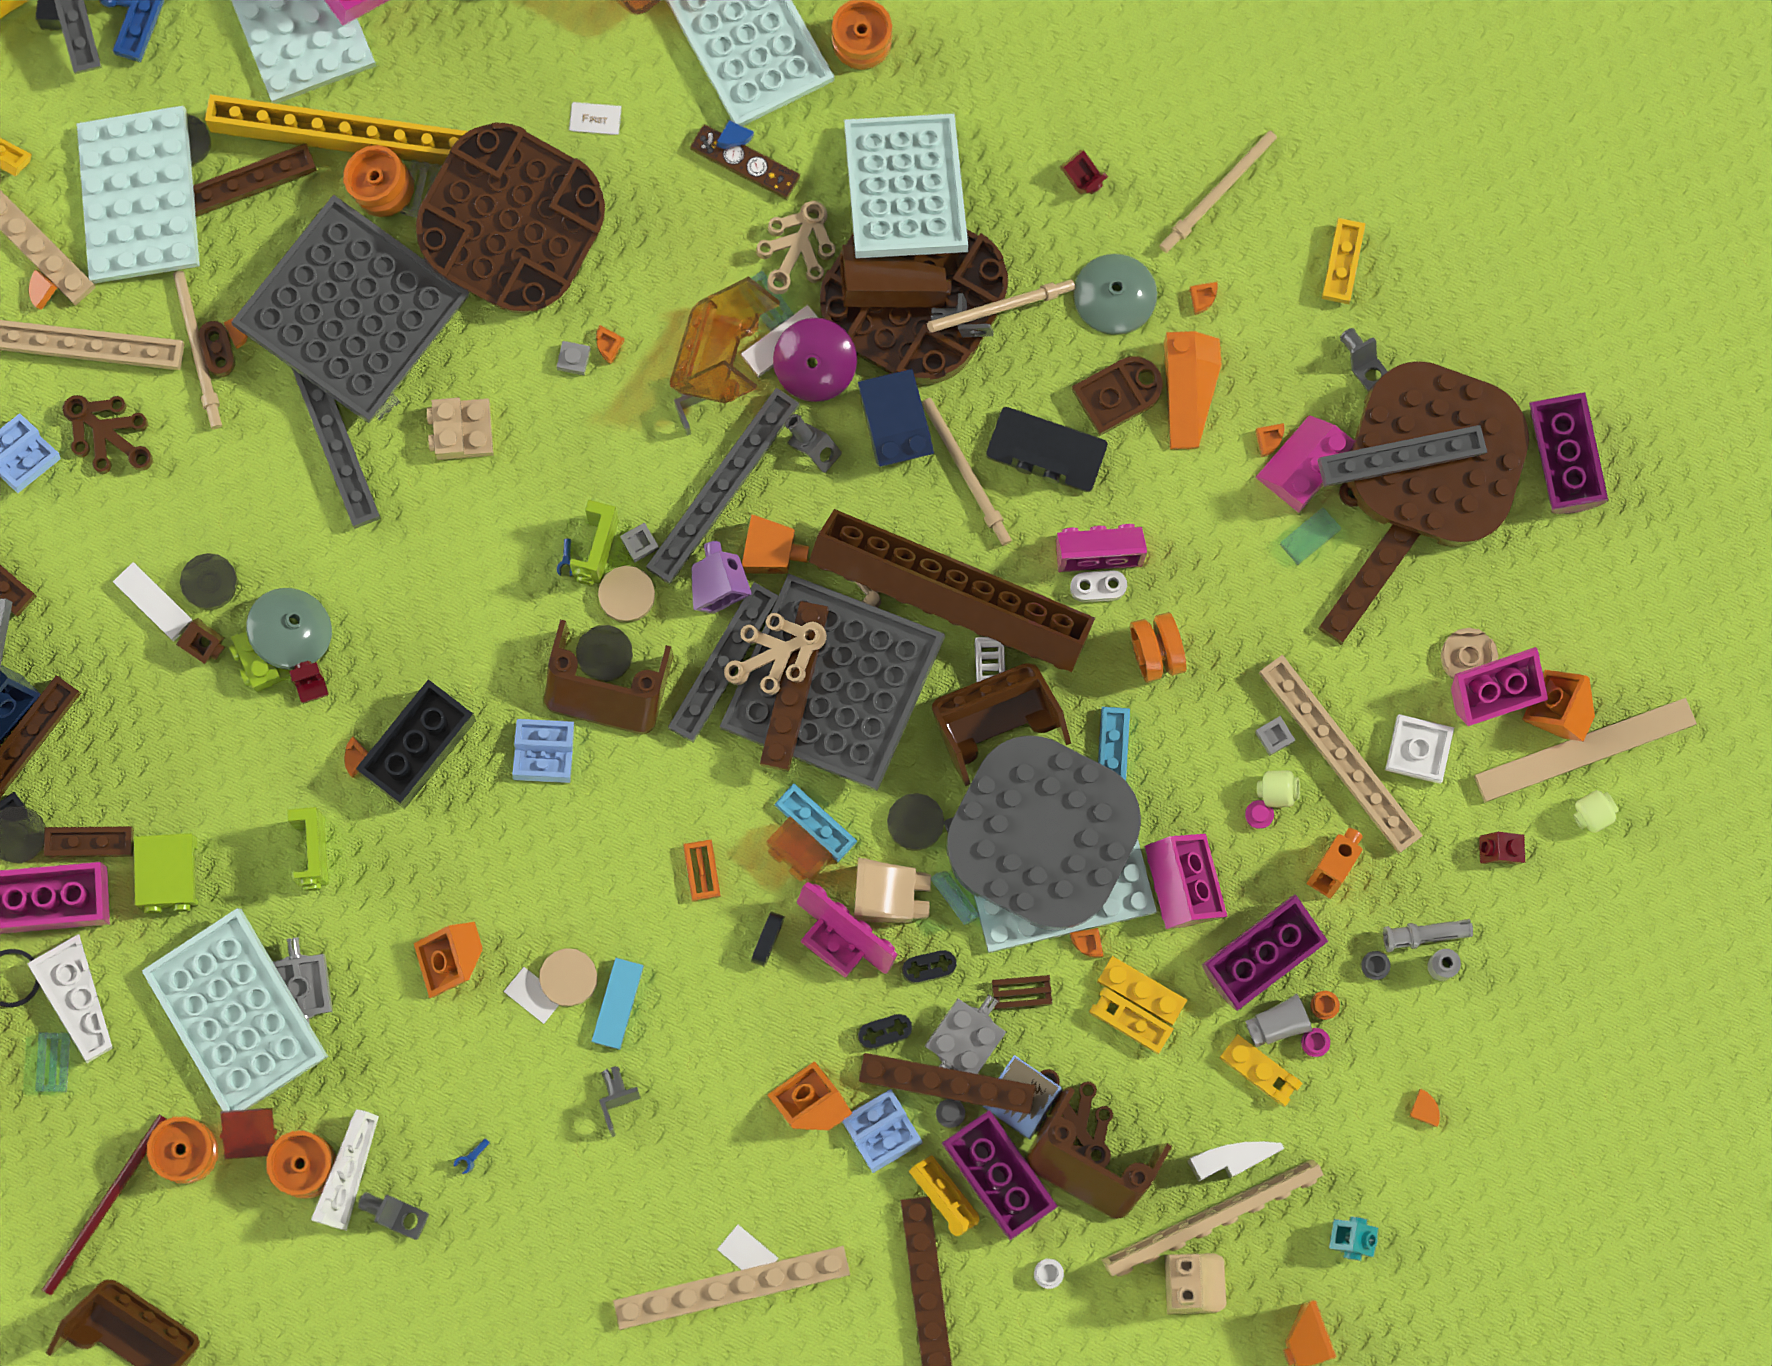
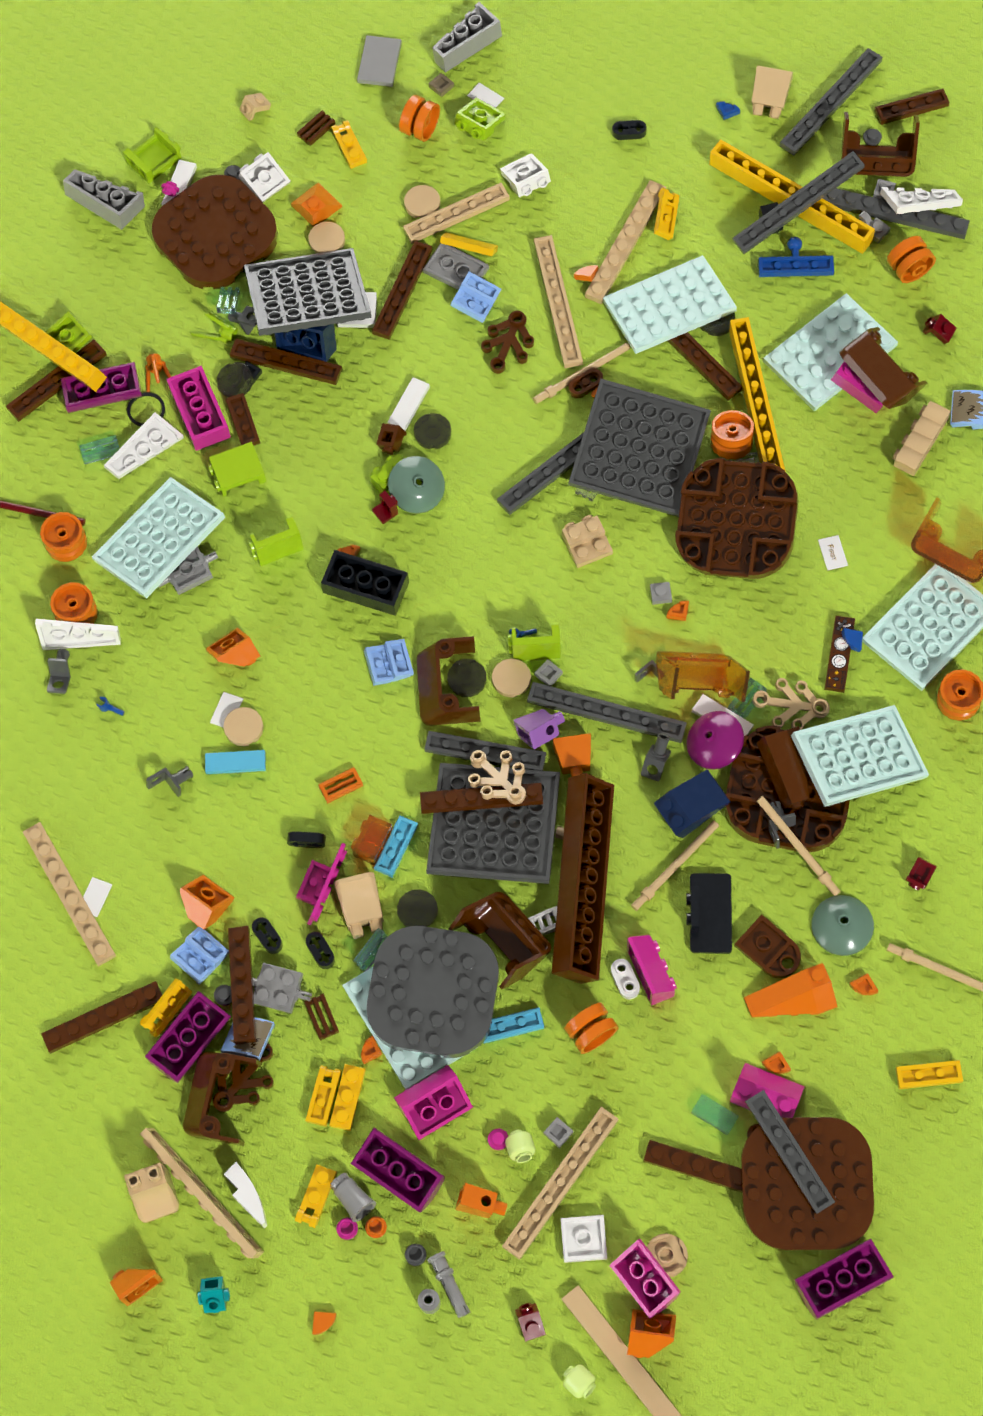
camera: 80 degrees right, 10 degrees down
(247, 1132) = (87, 570): clear red piece -> none
(1048, 1273) = (133, 1094): white plate -> none
(1362, 356) = (862, 1108): dark grey bracket -> none

